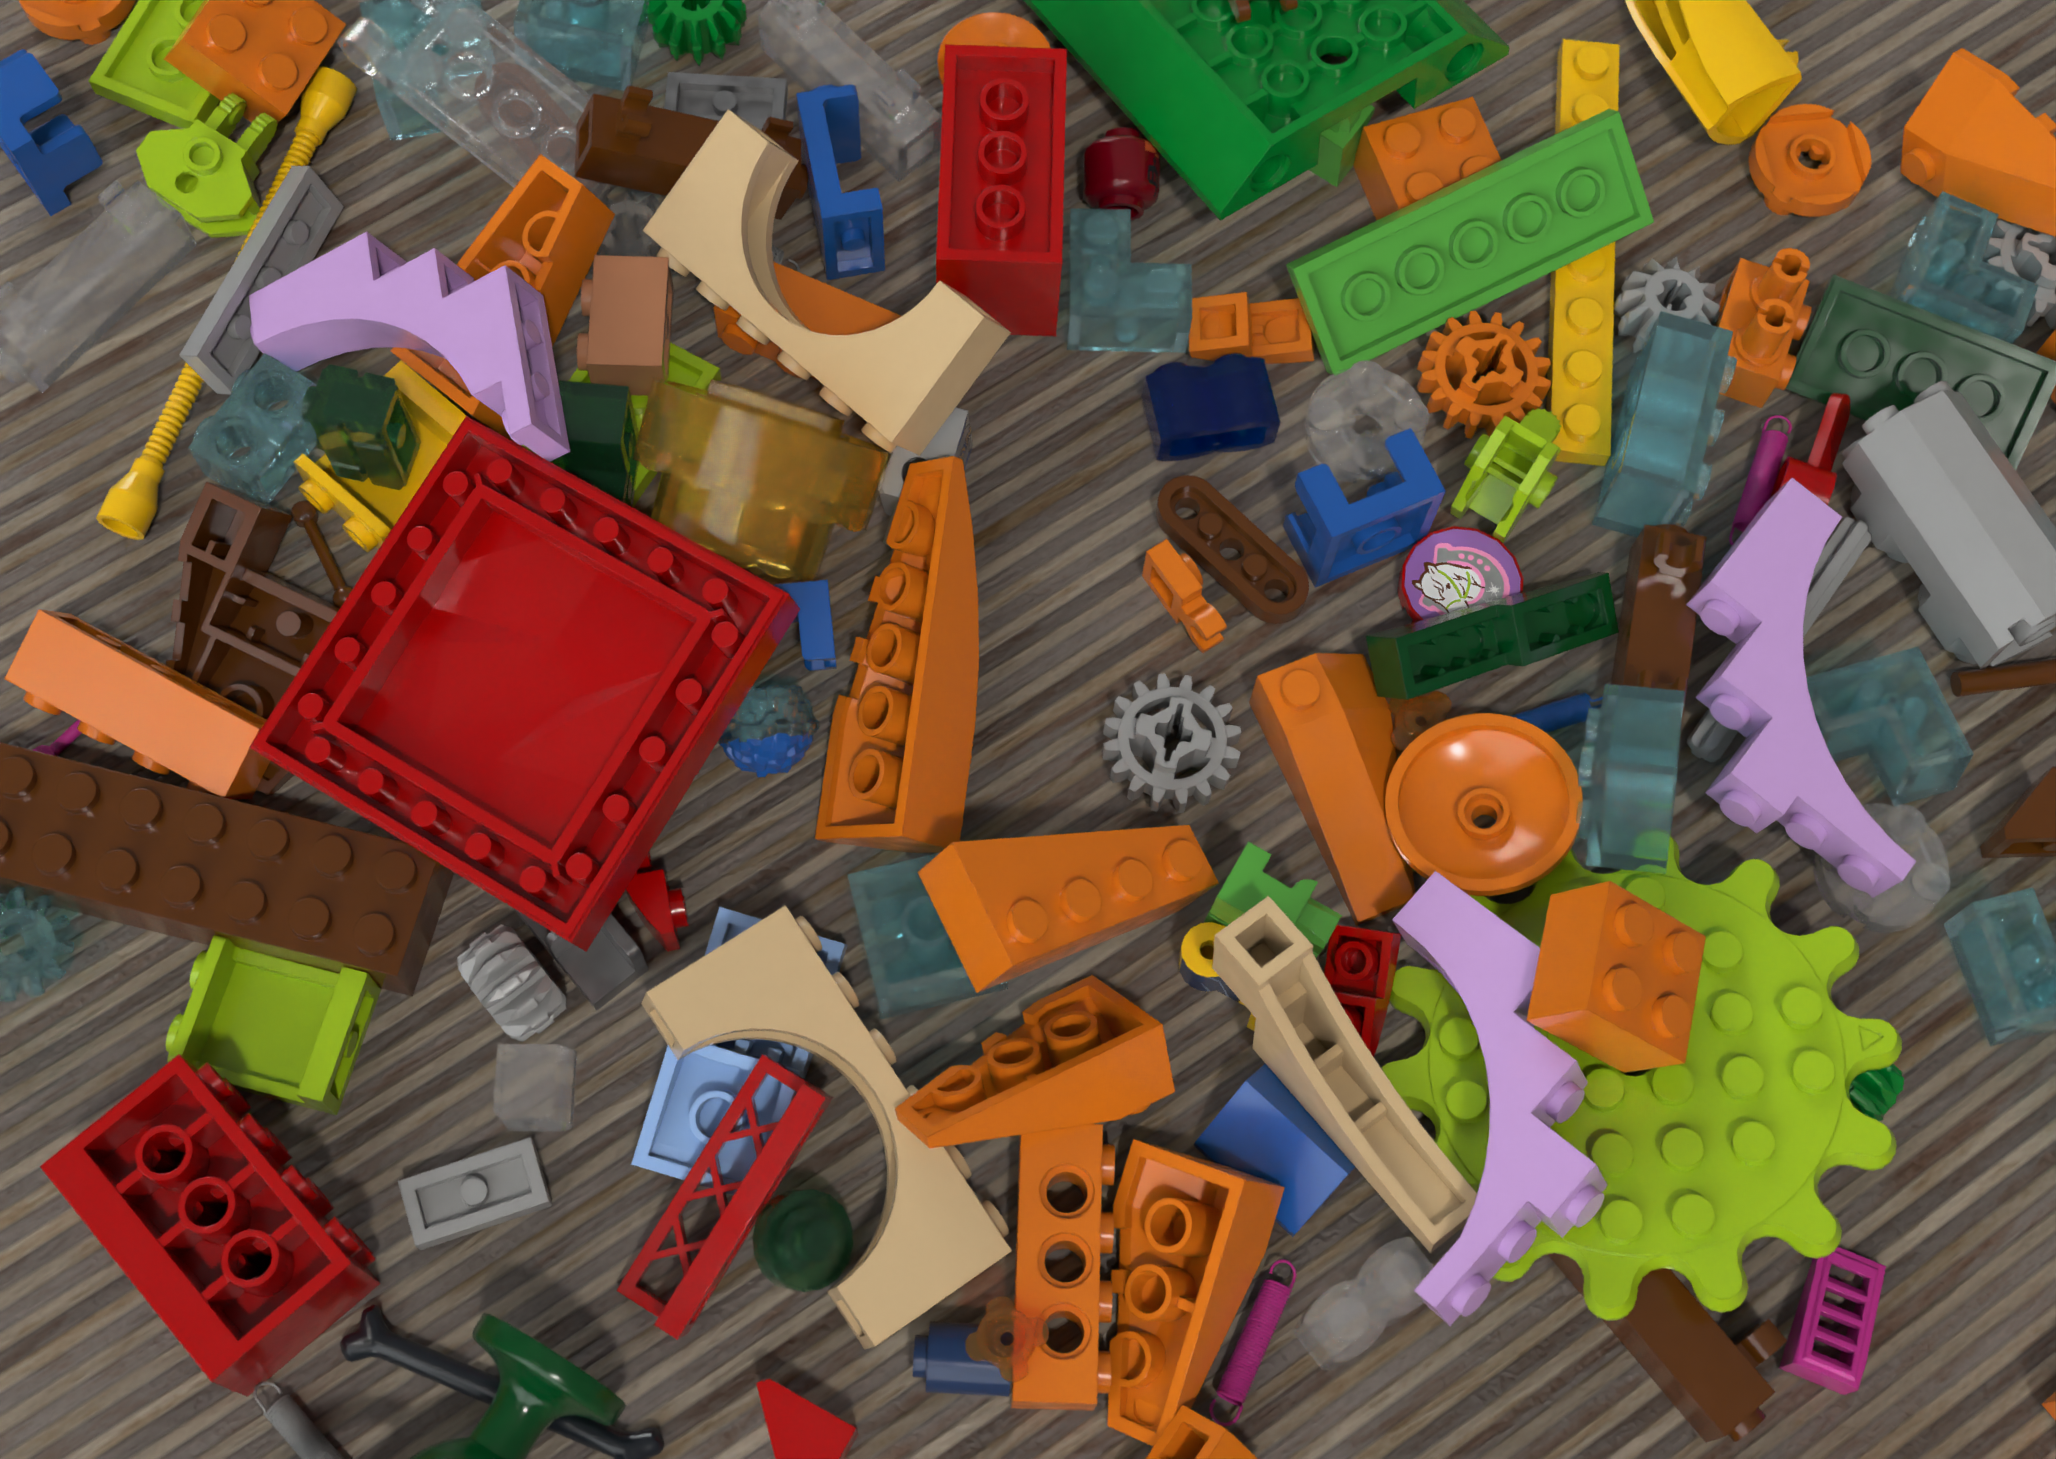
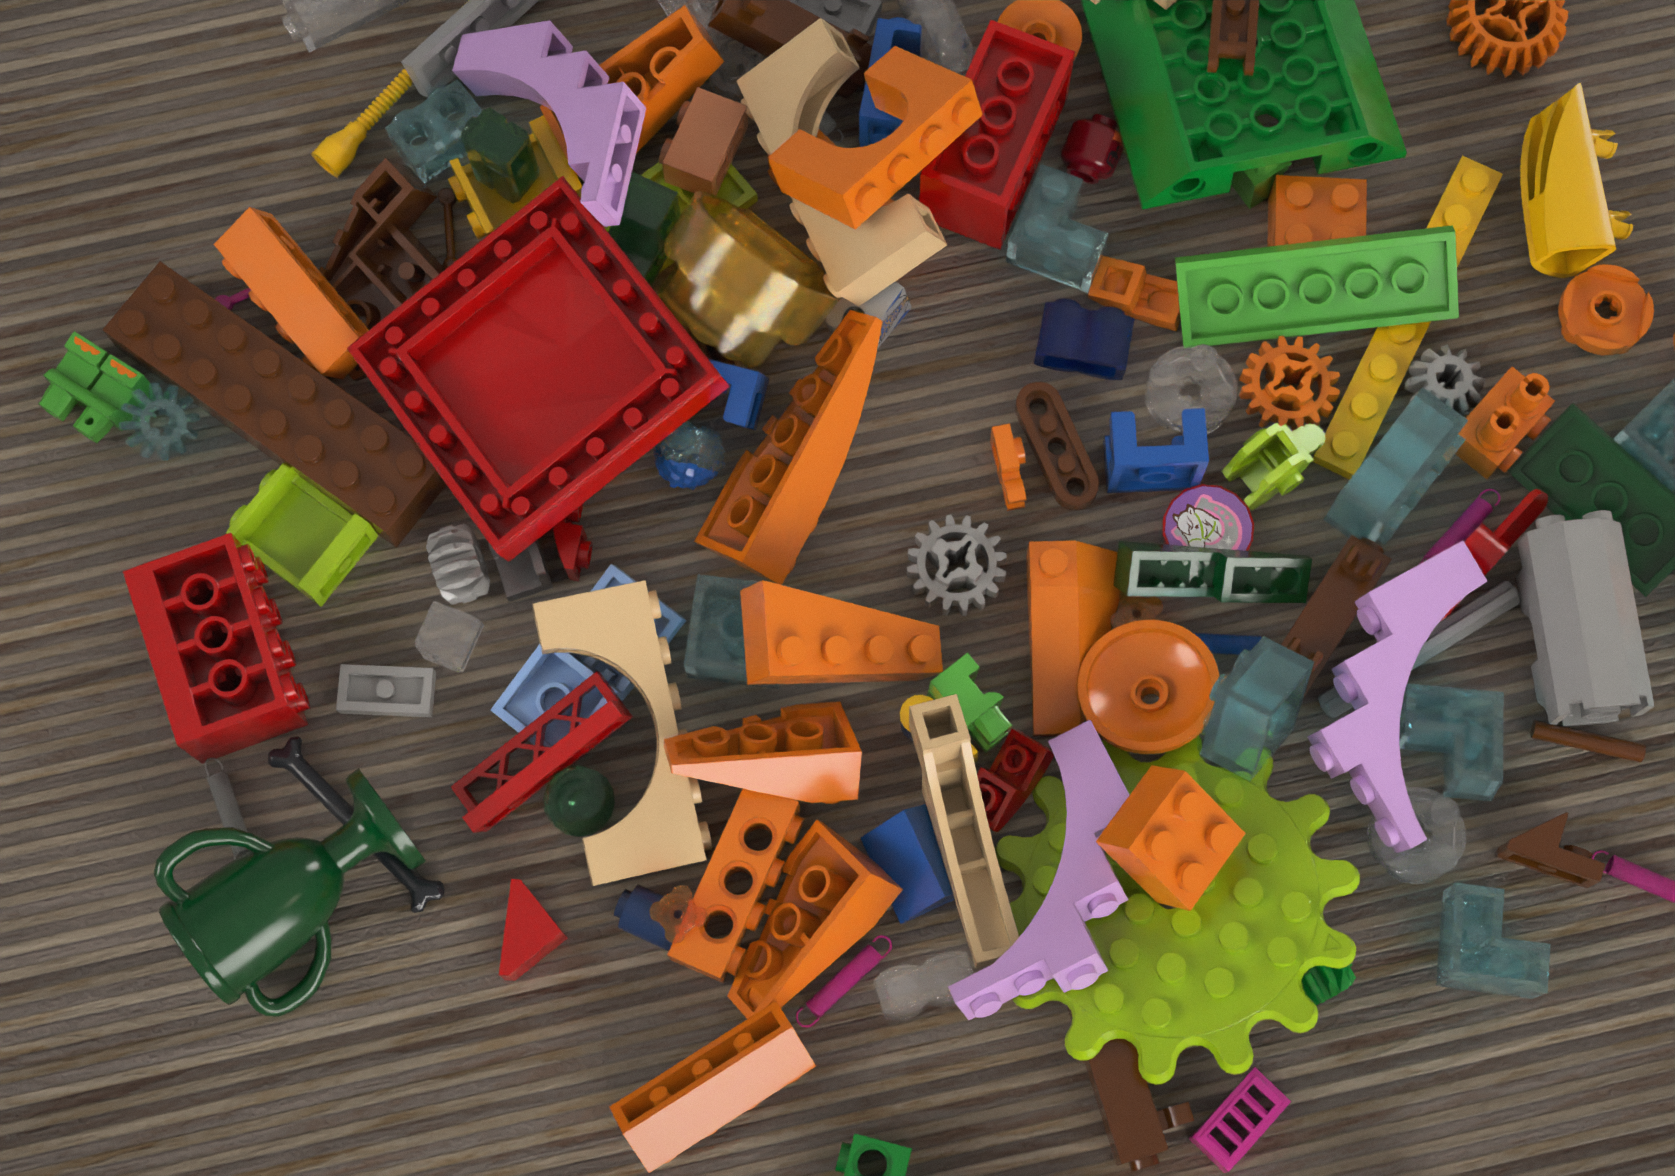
camera: 30 degrees right, 5 degrees up
(868, 287) = (859, 180): none -> orange arch

